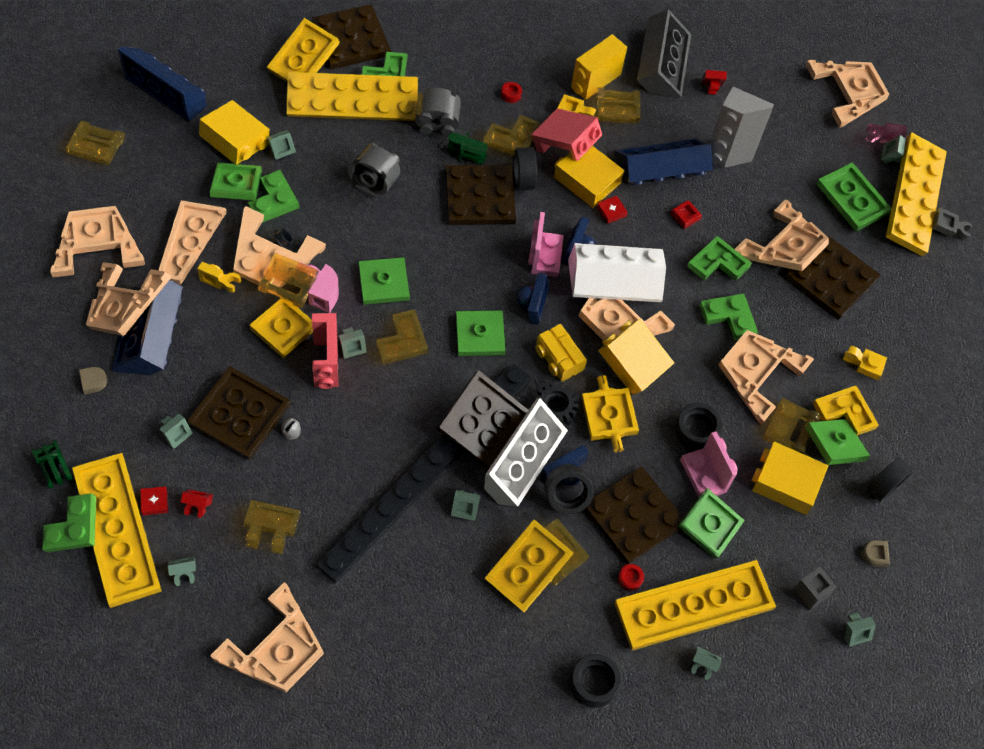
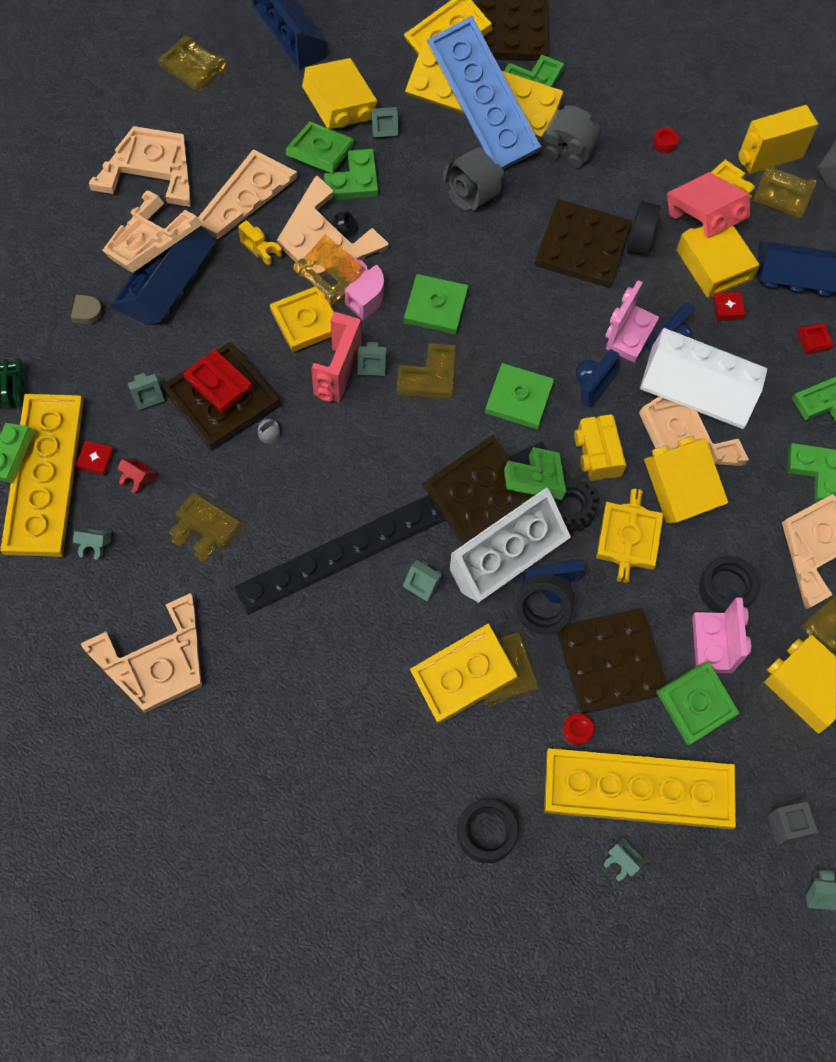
camera: 25 degrees right, 5 degrees up
(235, 401) = (217, 381): none -> red plate
(355, 97) = (484, 93): none -> medium blue plate
(467, 148) = (589, 186): dark green arm -> none
(507, 139) = (636, 189): clear yellow plate -> none
(524, 391) = (542, 473): none -> bright green plate

